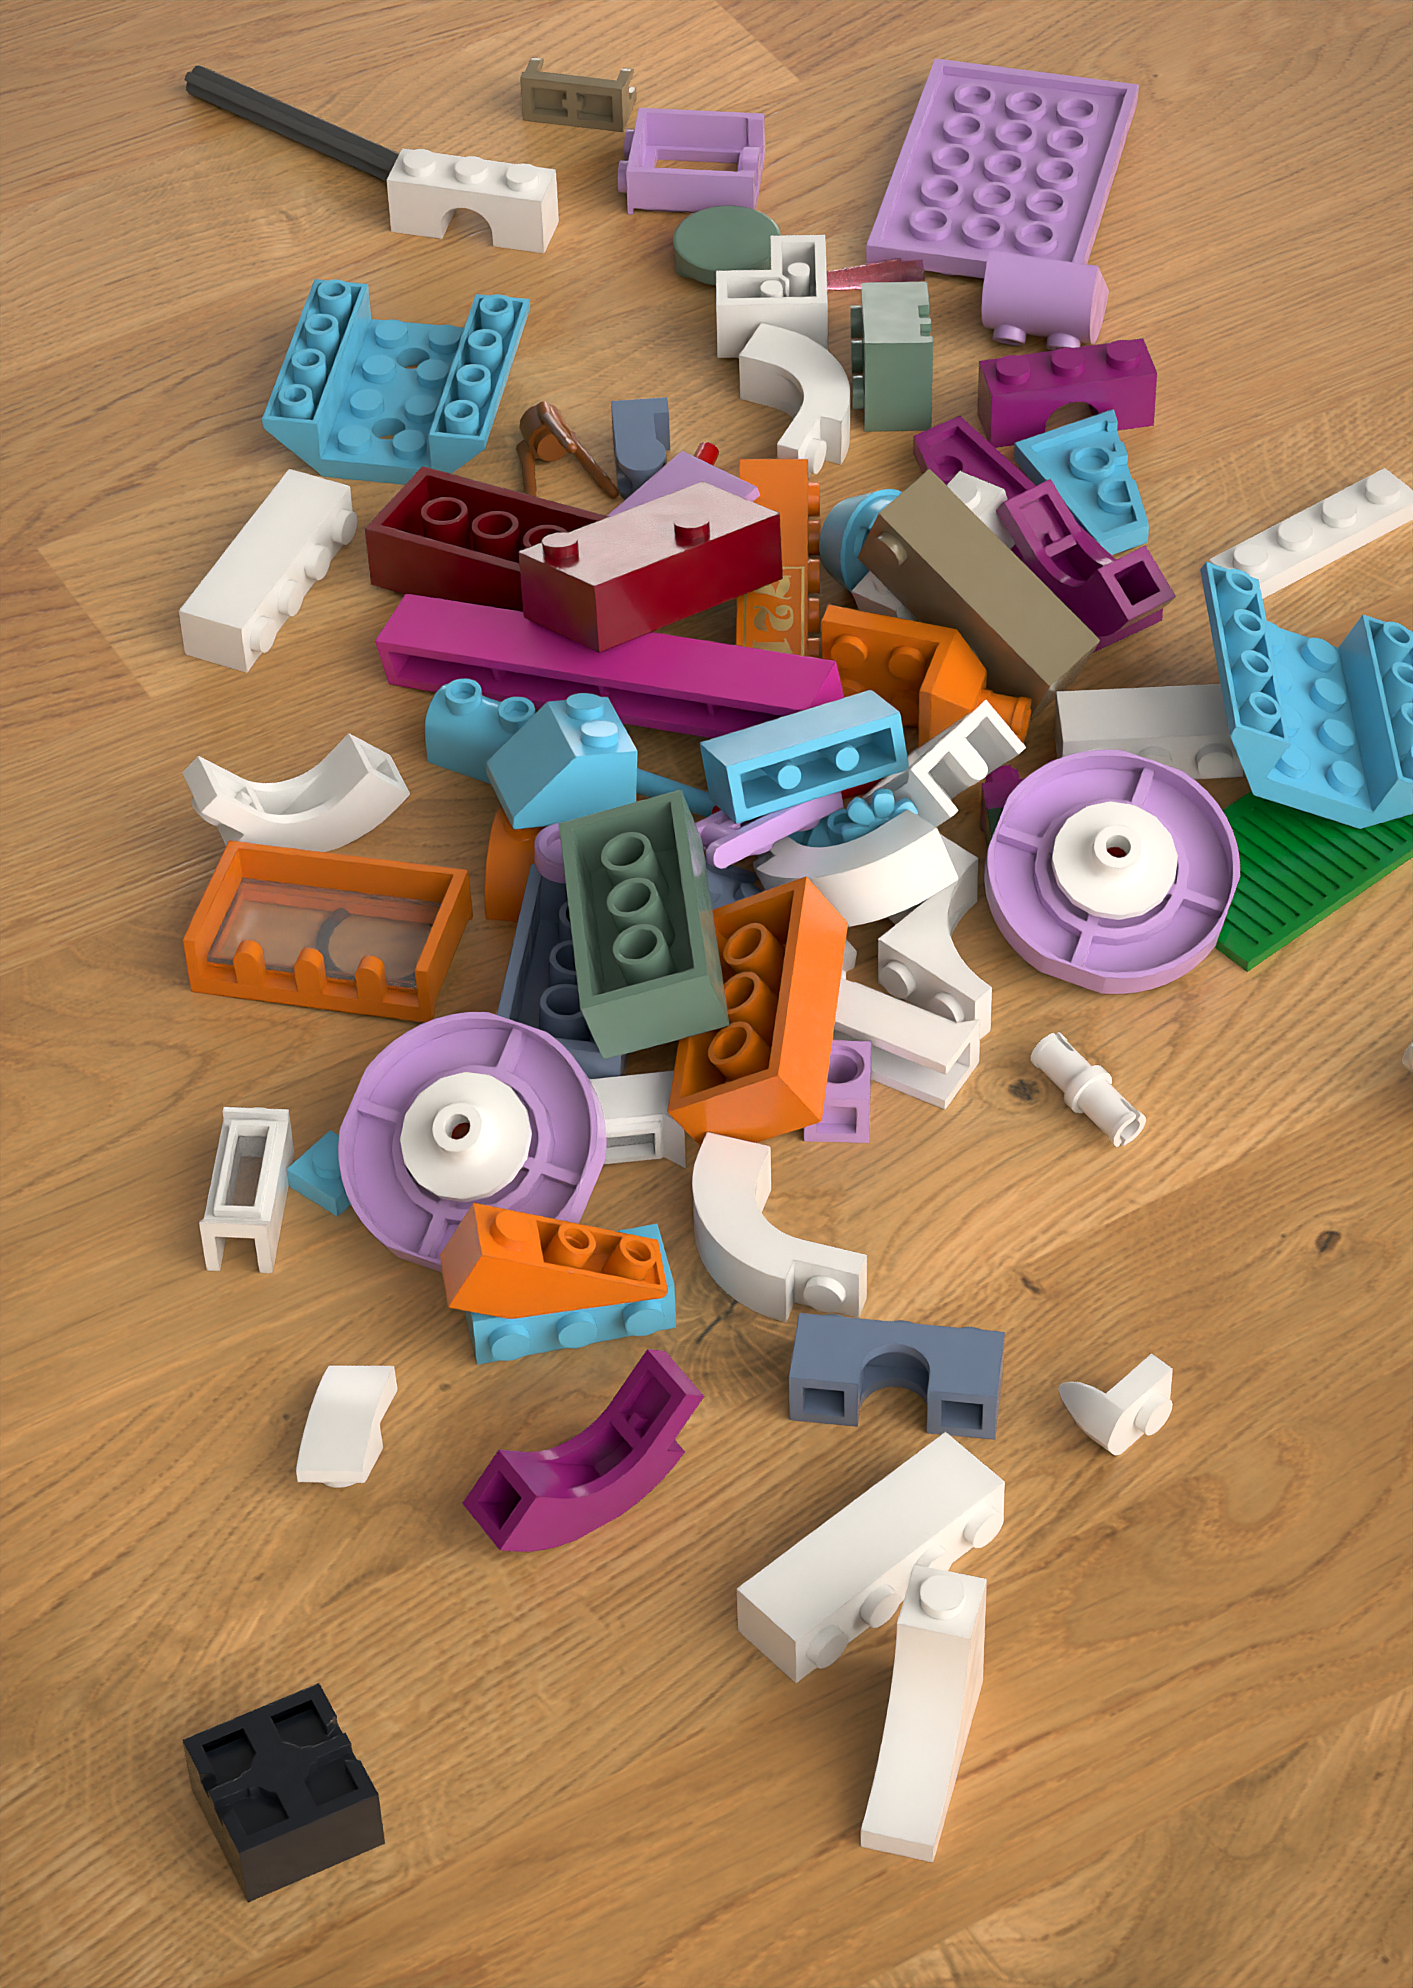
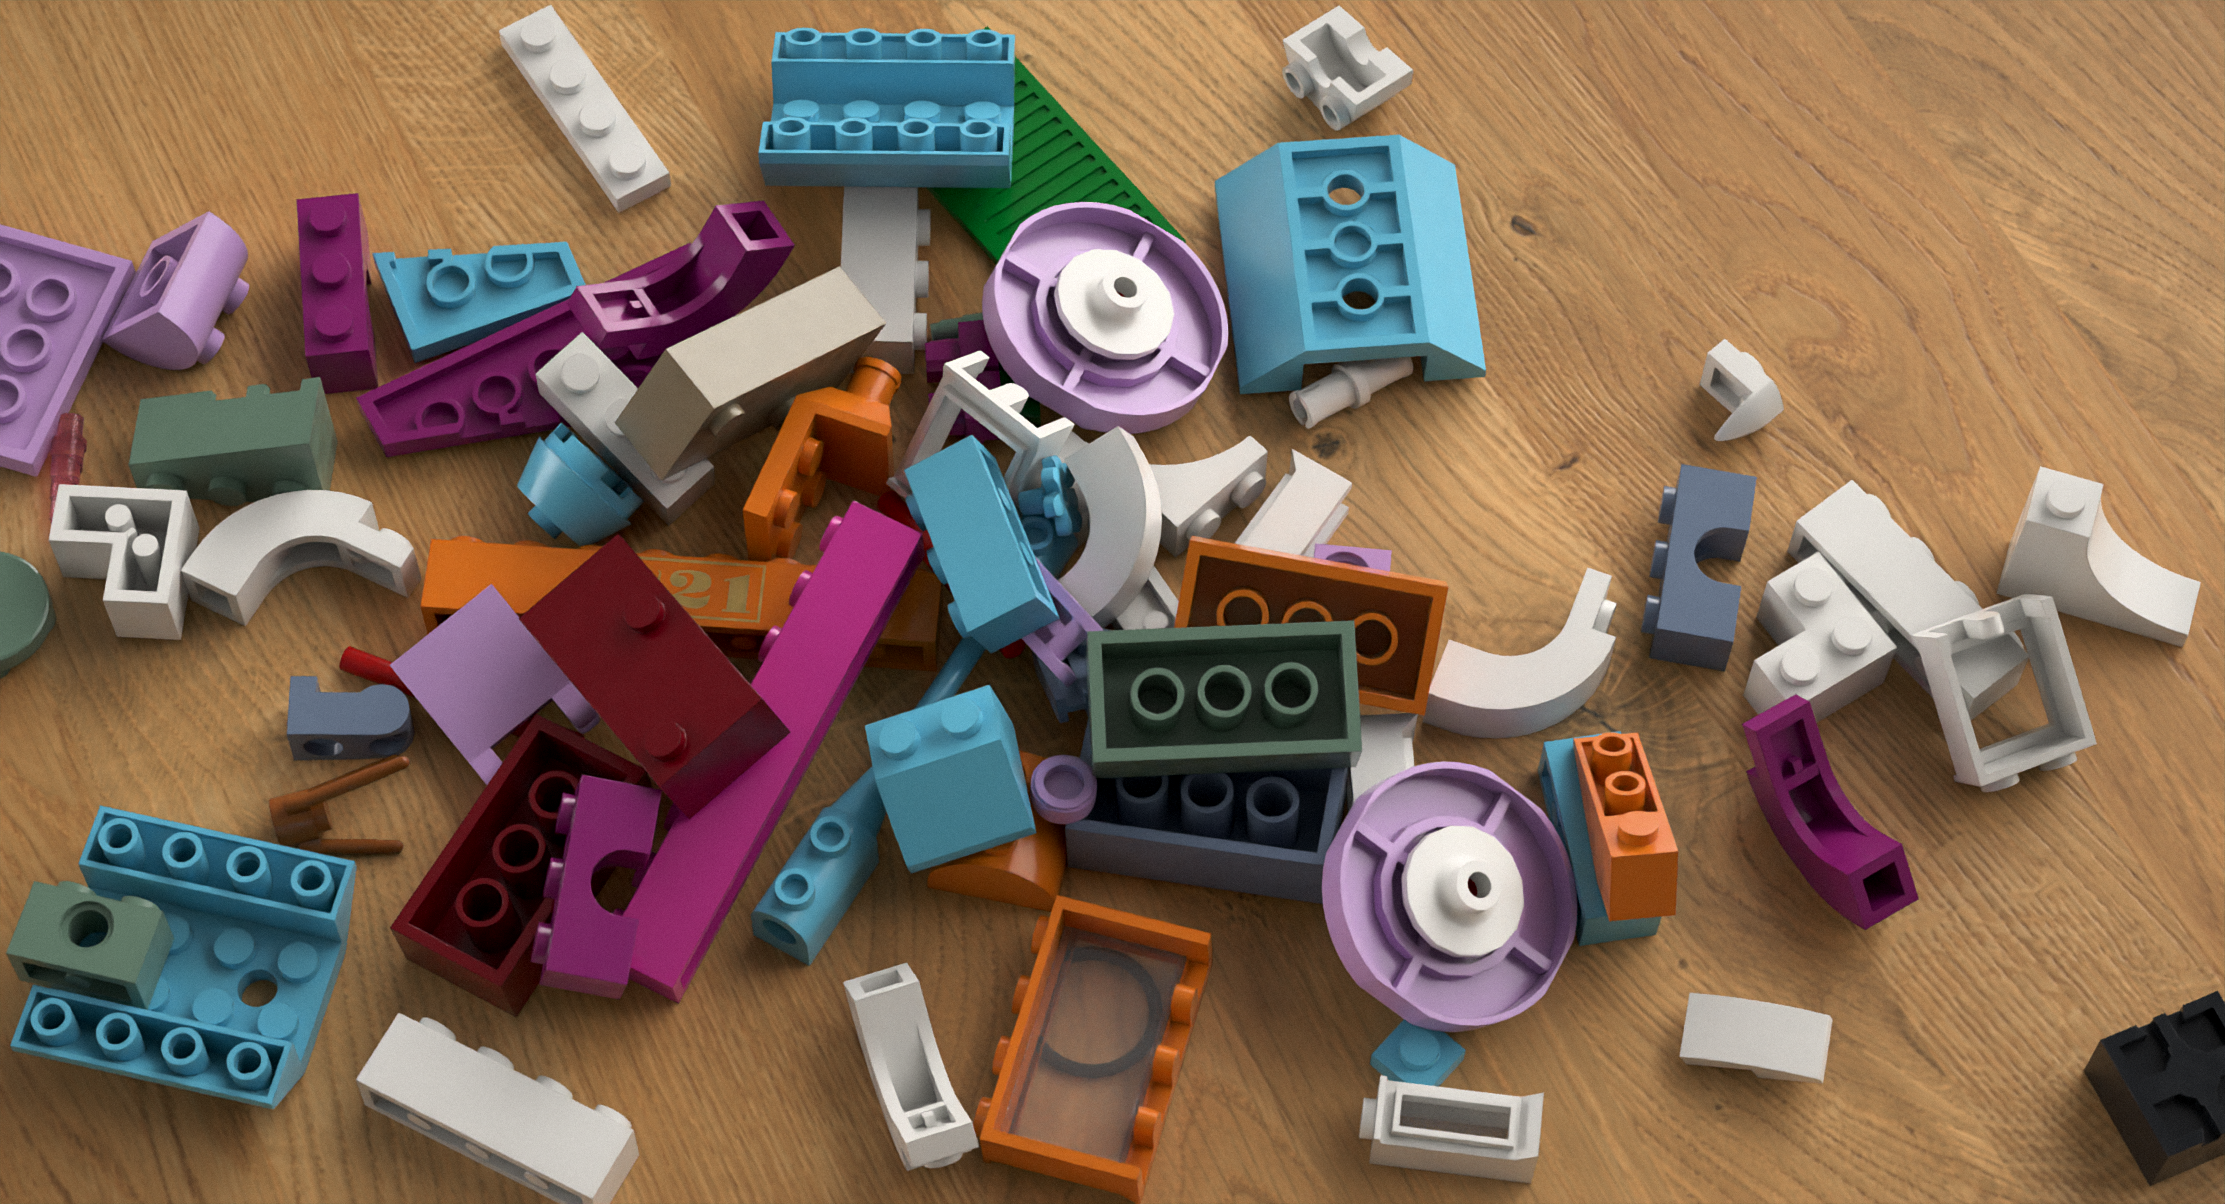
camera: 90 degrees left, 15 degrees up
(401, 552) = (585, 944): none -> magenta arch
(406, 312) = (117, 970): none -> sand green brick
(710, 1576) = (2046, 746): none -> white window
(791, 1475) = (1825, 640): none -> white brick
(1234, 1098) = (1299, 253): none -> medium azure slope

